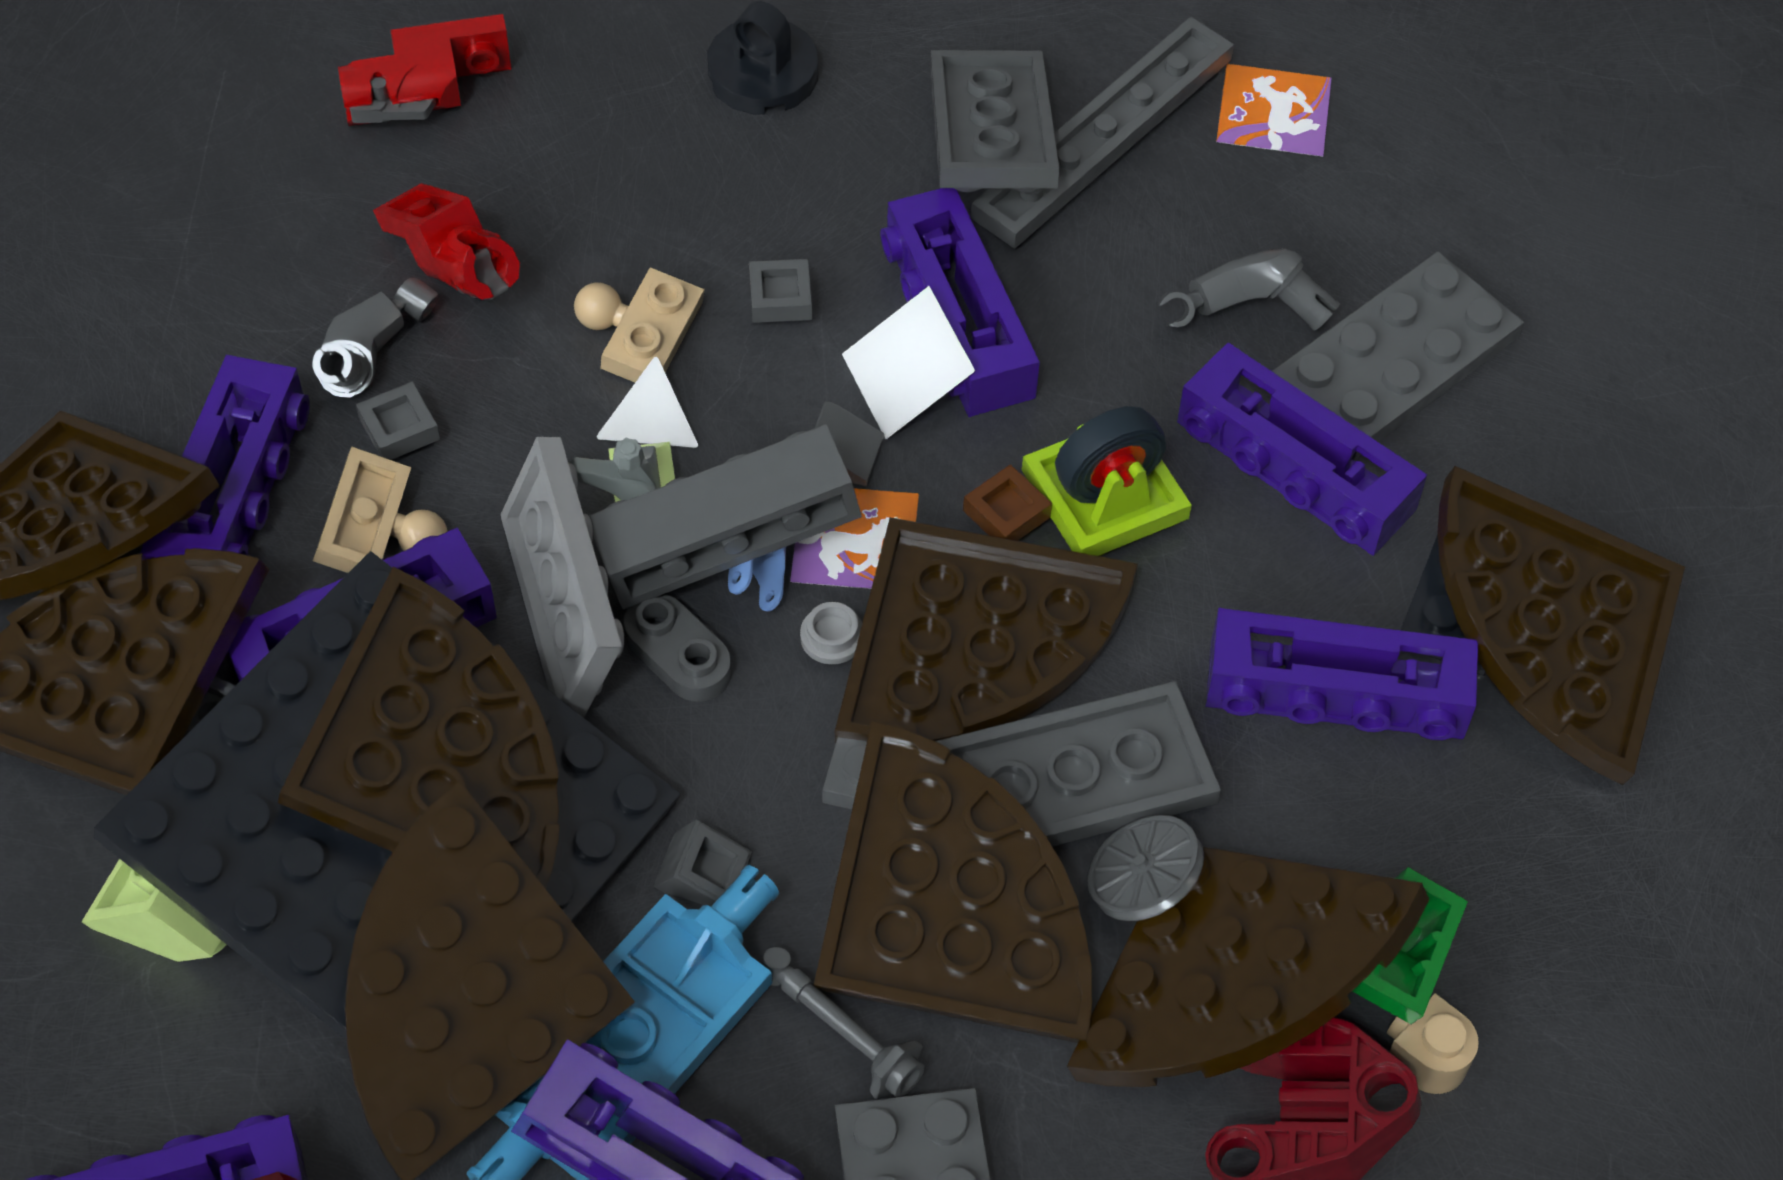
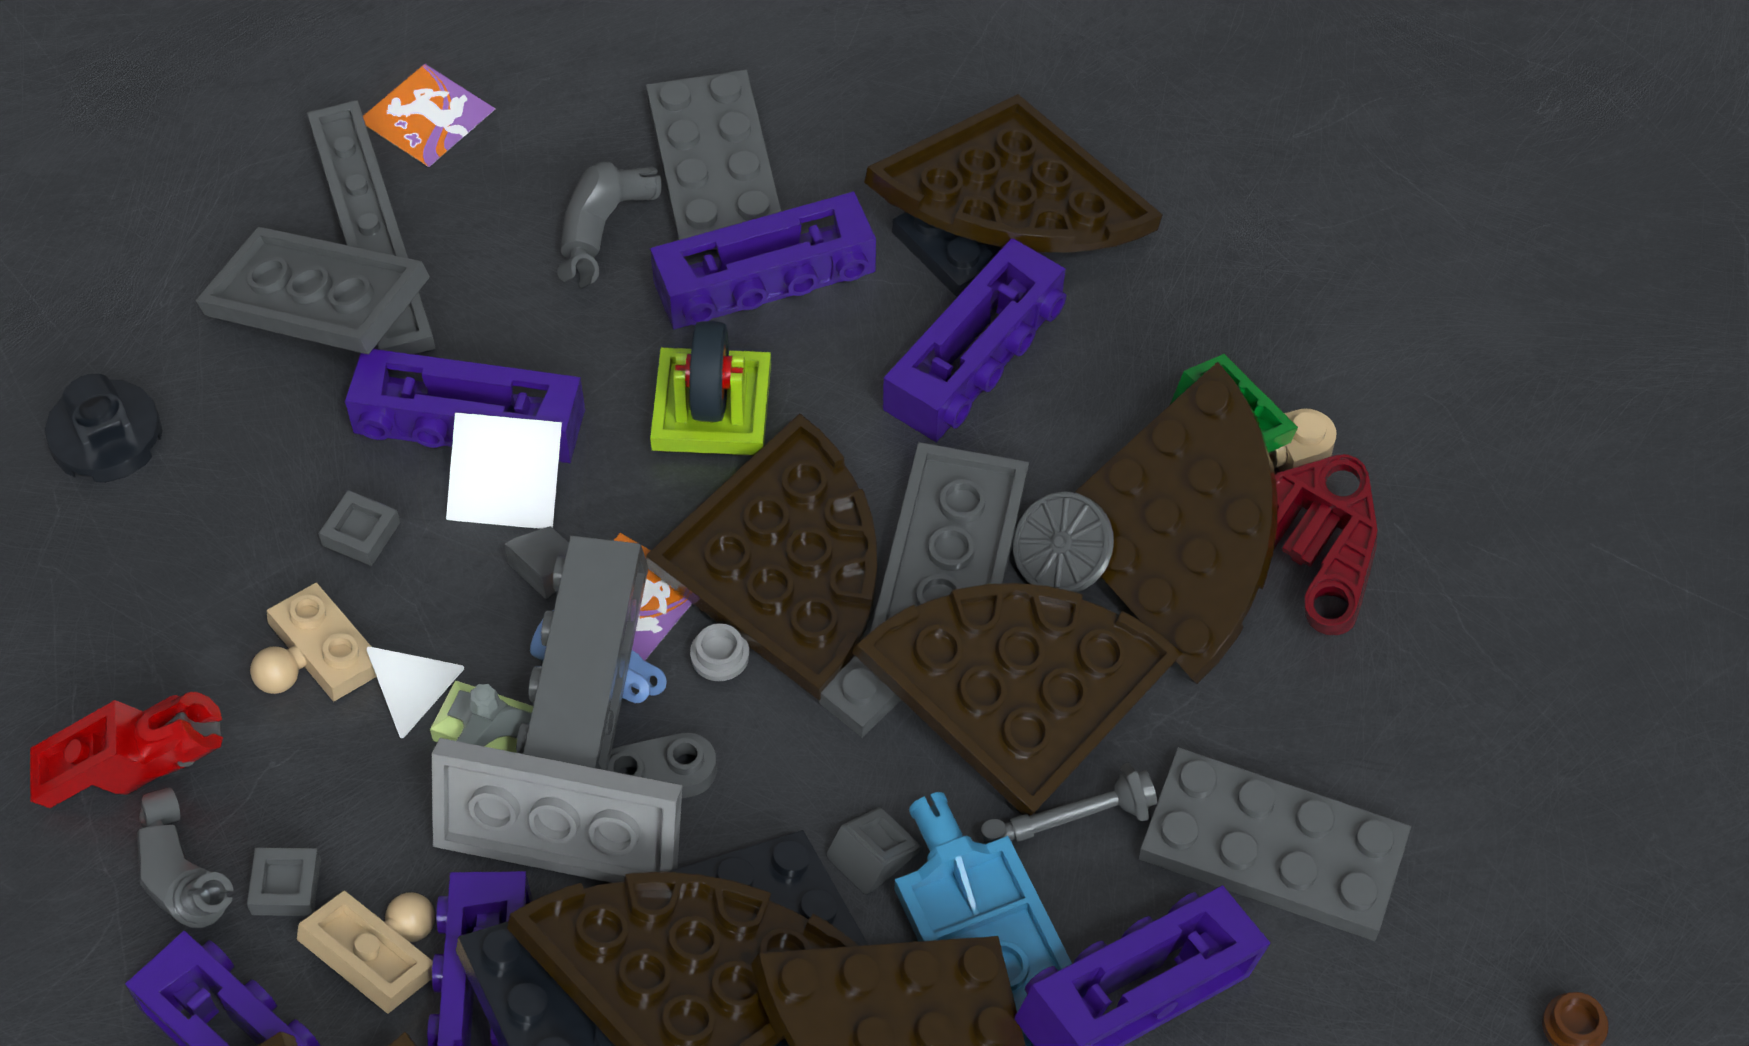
camera: 60 degrees left, 0 degrees up
(1007, 505) = (684, 474): reddish brown plate -> none

